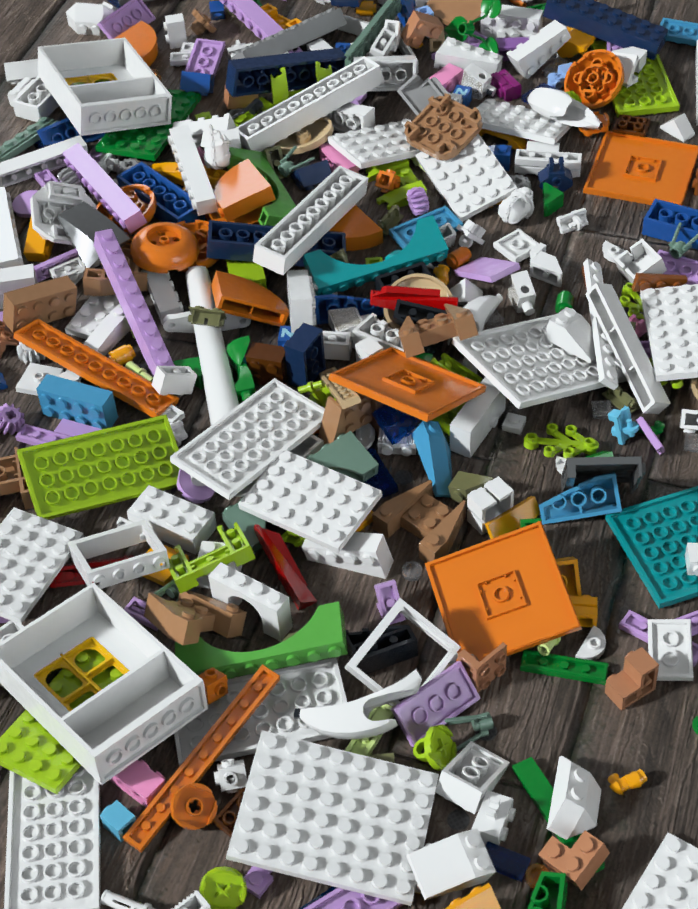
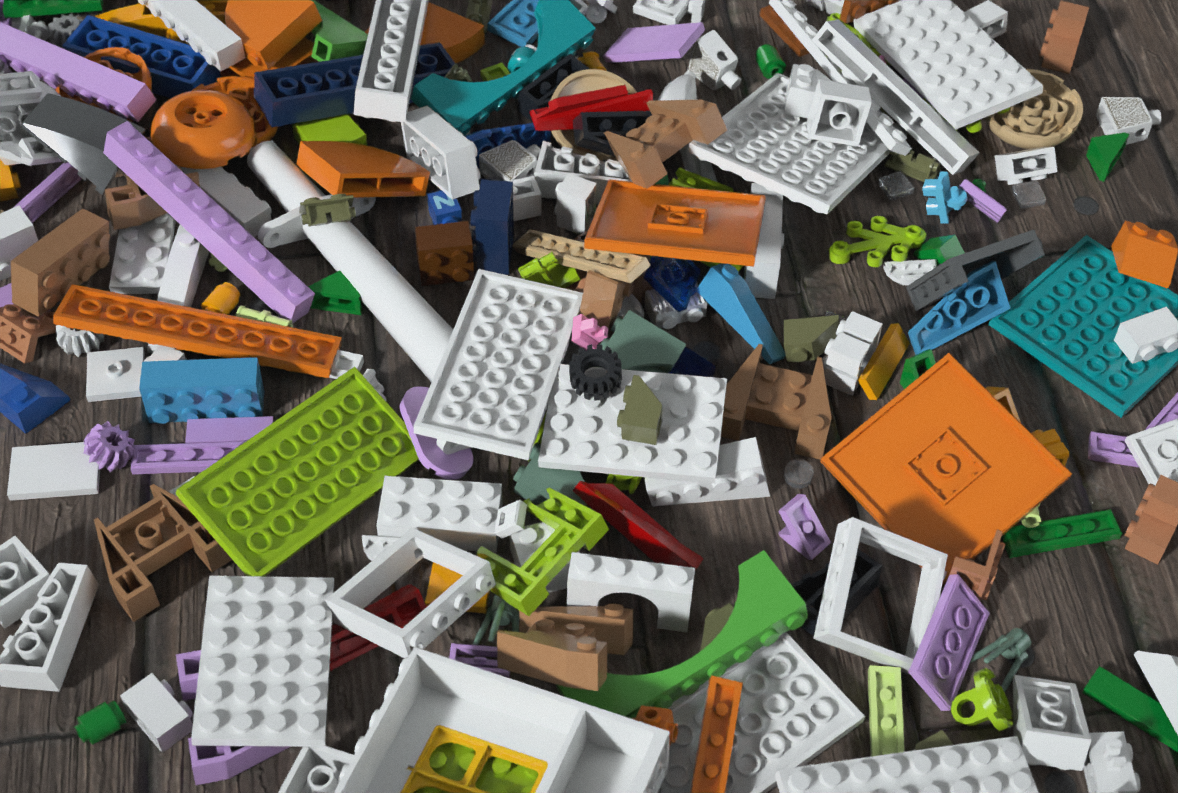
camera: 30 degrees left, 5 degrees up
(73, 269) = (64, 202): white wing -> none
(174, 380) = (327, 314): white brick -> none
(204, 533) = (510, 519): none -> white tile
(237, 359) = (399, 251): green hips -> none
(297, 451) = (595, 358): none -> black tyre
(309, 493) = (642, 414): none -> olive slope
(317, 437) = (587, 332): none -> bright pink tile
(351, 718) = (872, 704): white piece -> none
(458, 257) = (602, 37): orange brick -> none
(466, 291) = (642, 79): white slope -> none
(514, 423) = (803, 235): white plate -> none
(546, 268) = (724, 21): white slope -> none
(572, 346) = (838, 112): none -> white brick
(593, 645) = (1077, 494): white plate -> none

